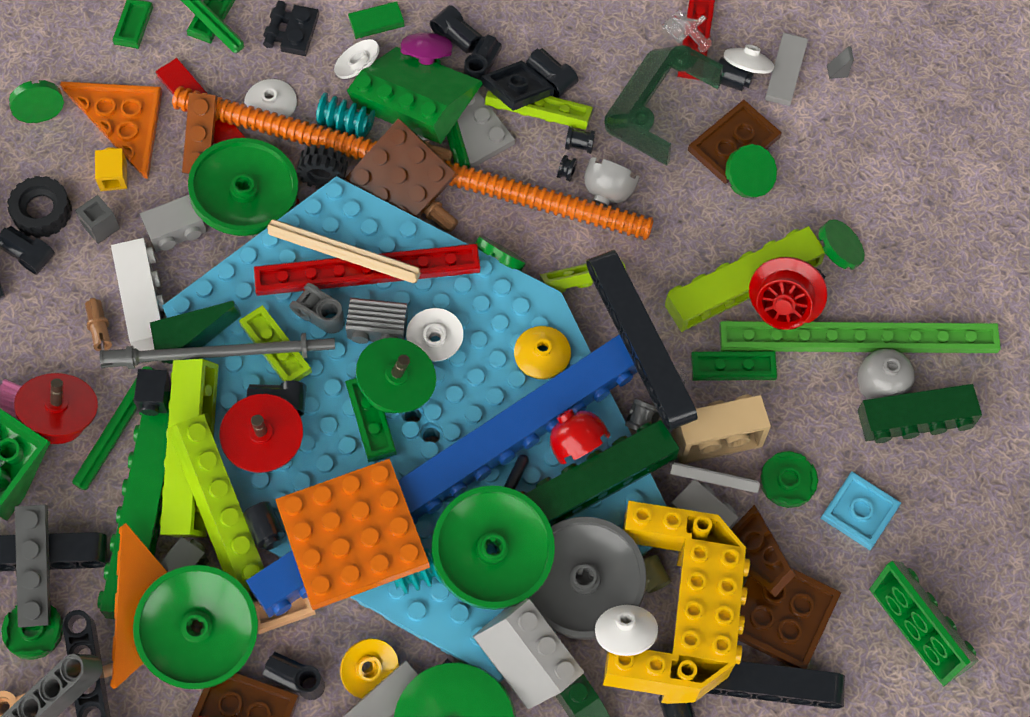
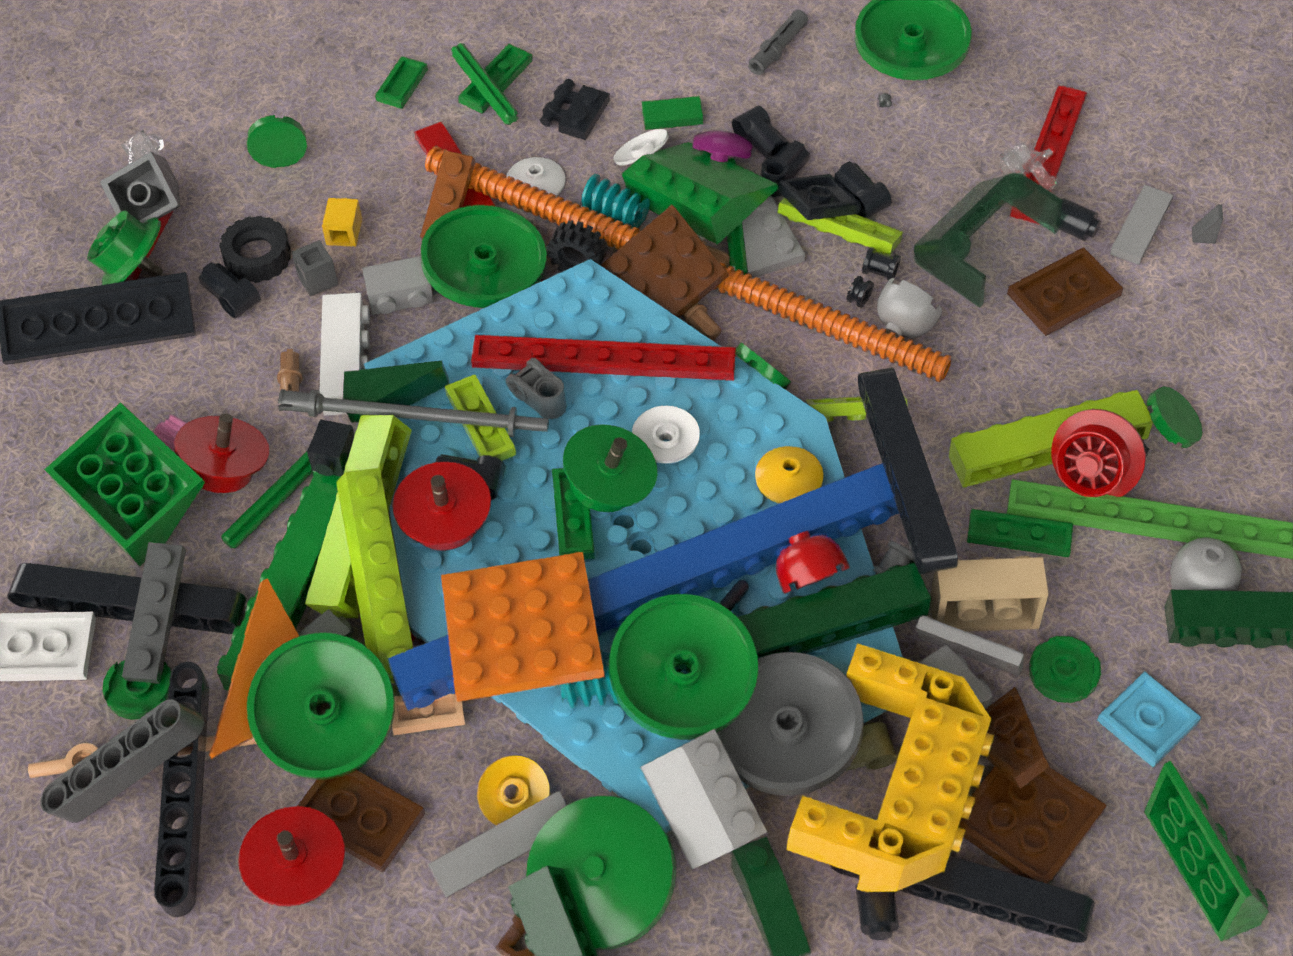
camera: 15 degrees right, 10 degrees down
(123, 115) = (367, 172): orange tile -> none
(264, 525) = (424, 607): black brick -> none
(292, 675) = (423, 785): black piece -> none
(344, 251) = (581, 332): tan axle -> none
(375, 320) = (599, 404): dark grey brick -> none
(626, 630) = (825, 784): white dish -> none
(749, 59) = (1098, 204): white dish -> none
(751, 171) = (1078, 323): green tile -> none

